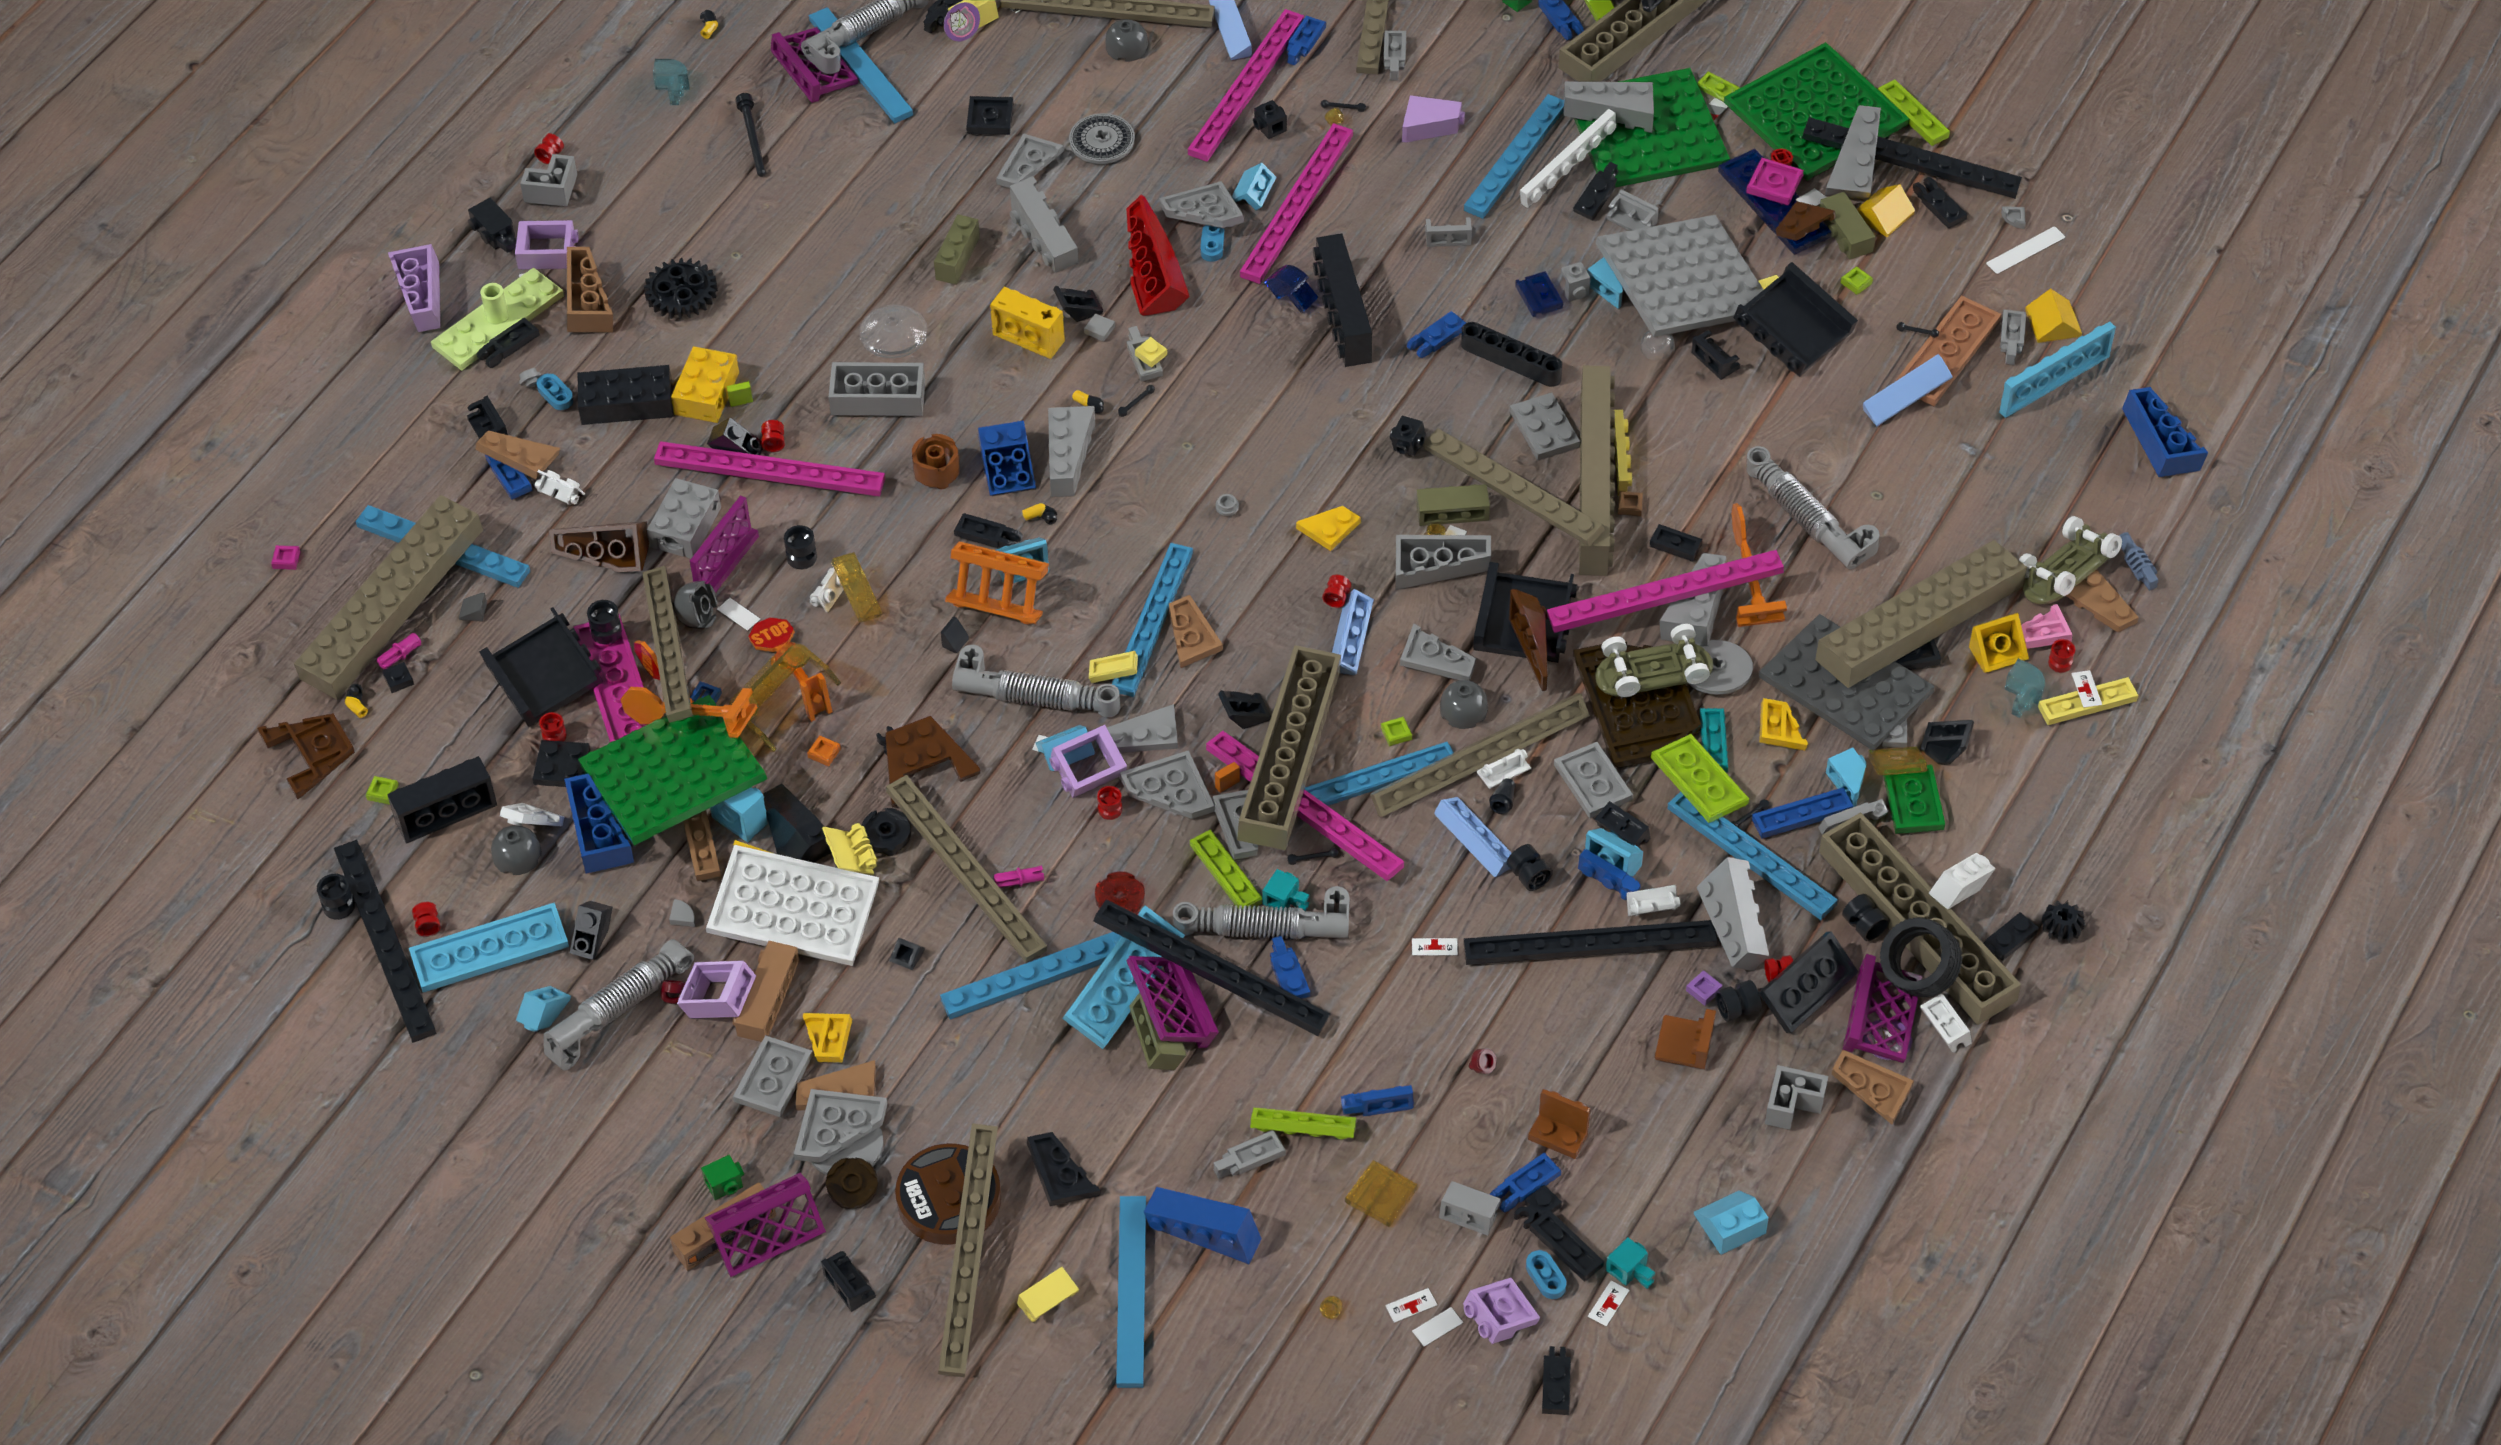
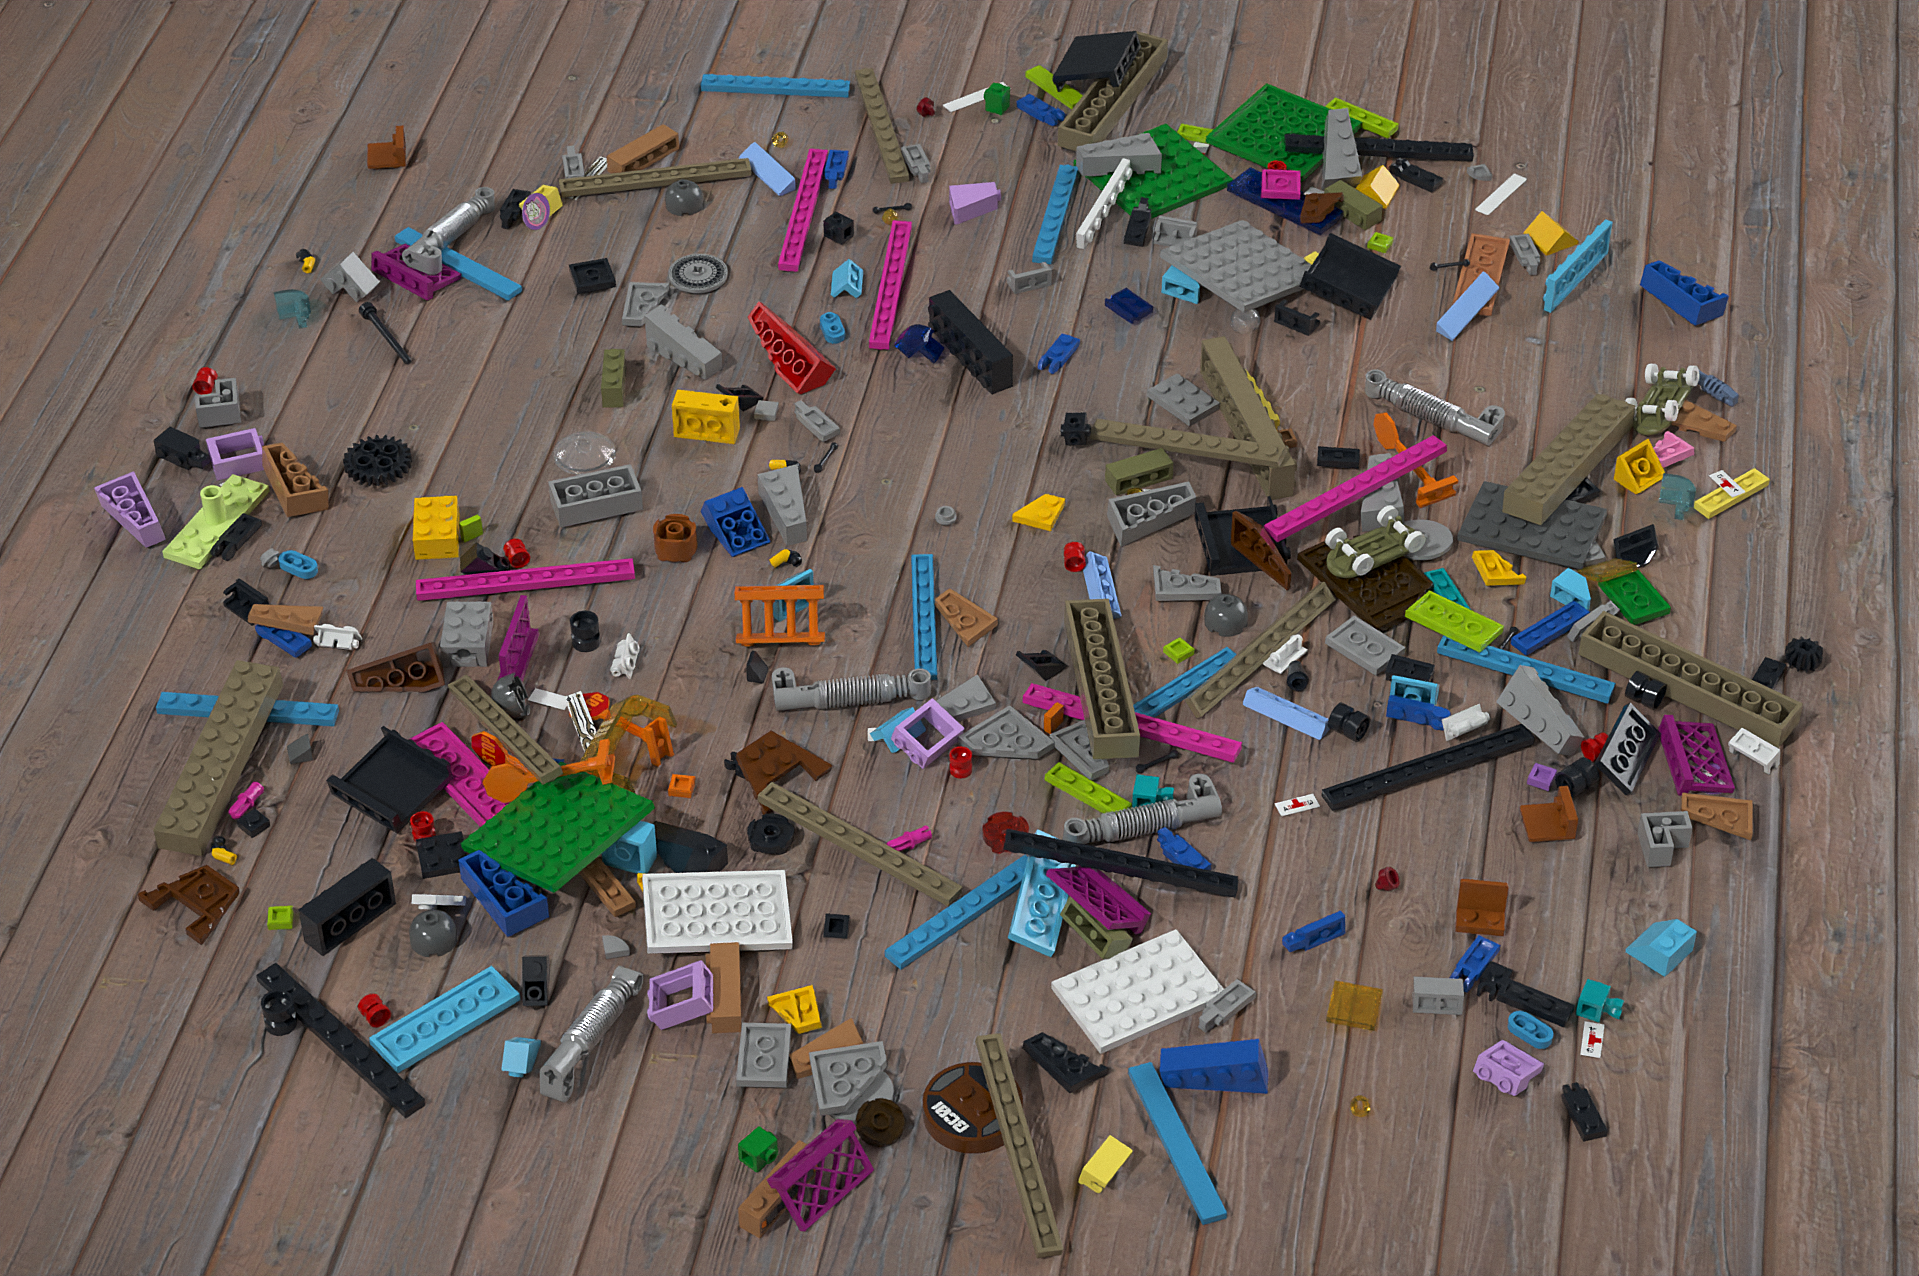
camera: 20 degrees left, 10 degrees down
(285, 557) = (100, 752): dark pink tile -> none
(604, 621) = (435, 727): black wheel -> none
(625, 394) = (366, 551): black brick -> none
(671, 986) = (637, 1005): dark red tile -> none
(741, 58) = (352, 276): none -> light grey brick
(756, 645) = (581, 718): none -> sticker
(847, 1281) = (914, 1205): black hinge -> none
(851, 849) = (751, 852): light yellow hinge -> none
(856, 587) = (652, 650): clear yellow tile -> none
(986, 531) = (727, 581): black hinge -> none
(1113, 667) = (910, 658): light yellow tile -> none
(1151, 352) = (824, 415): light yellow plate -> none
(1171, 1112) = (1137, 991): none -> white plate
(1203, 205) = (814, 300): light grey plate -> none
(1302, 1122) = (1251, 968): lime plate -> none
(1411, 1305) = (1425, 1087): white sticker -> none
(1437, 1326) = (1457, 1098): white sticker -> none
(1511, 354) = (1129, 352): black beam -> none
(1577, 281) = (1158, 289): light grey bracket -> none
(1894, 945) = (1705, 677): black tyre -> none
(1962, 880) = (1712, 640): white brick -> none
(2061, 655) = (1693, 465): red wheel -> none

